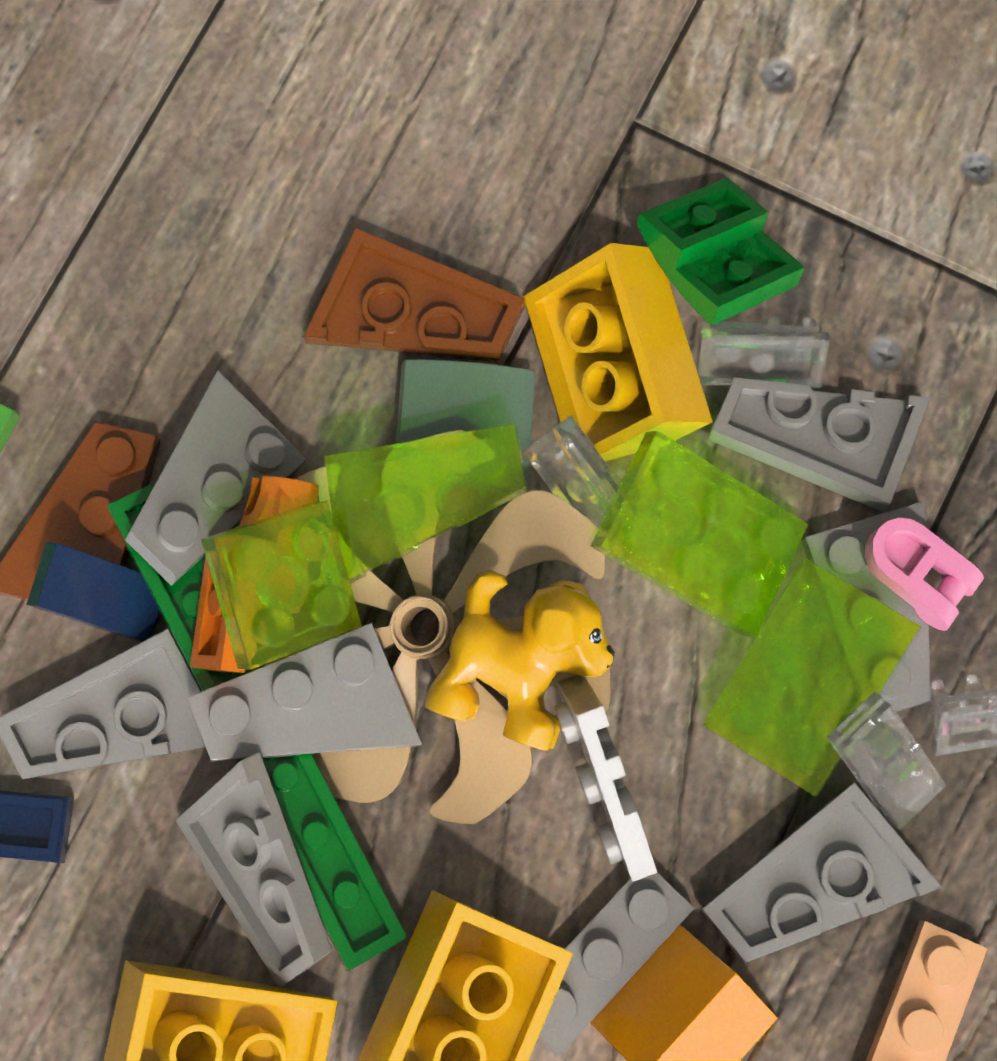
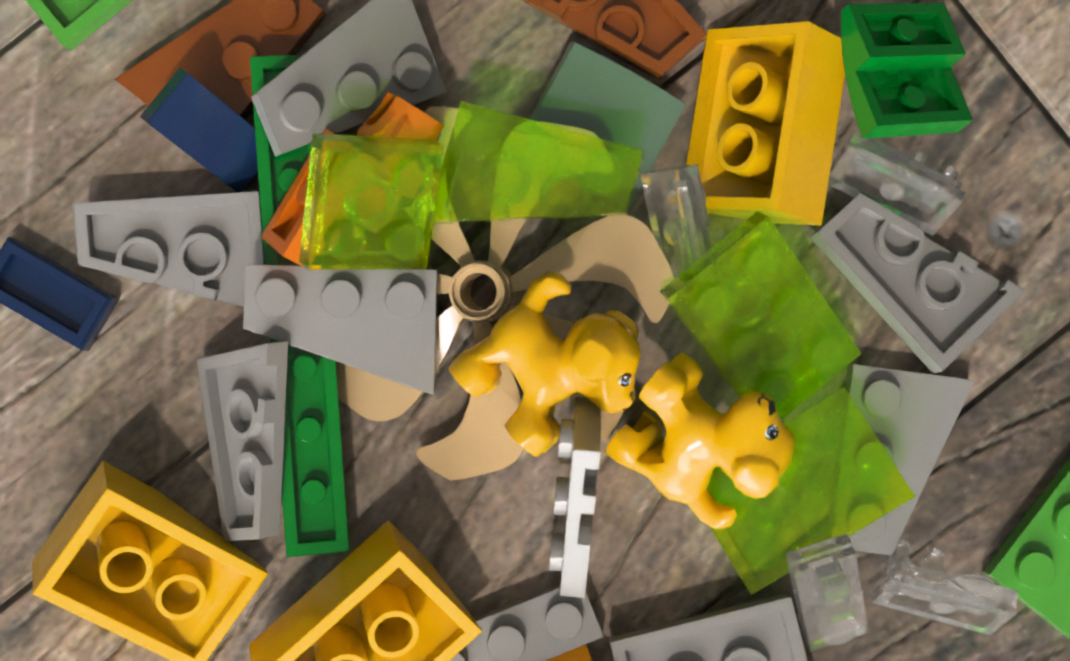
camera: 20 degrees right, 10 degrees up
(736, 648) = (745, 442): none -> yellow animal
(901, 557) = (930, 423): bright pink plate -> none

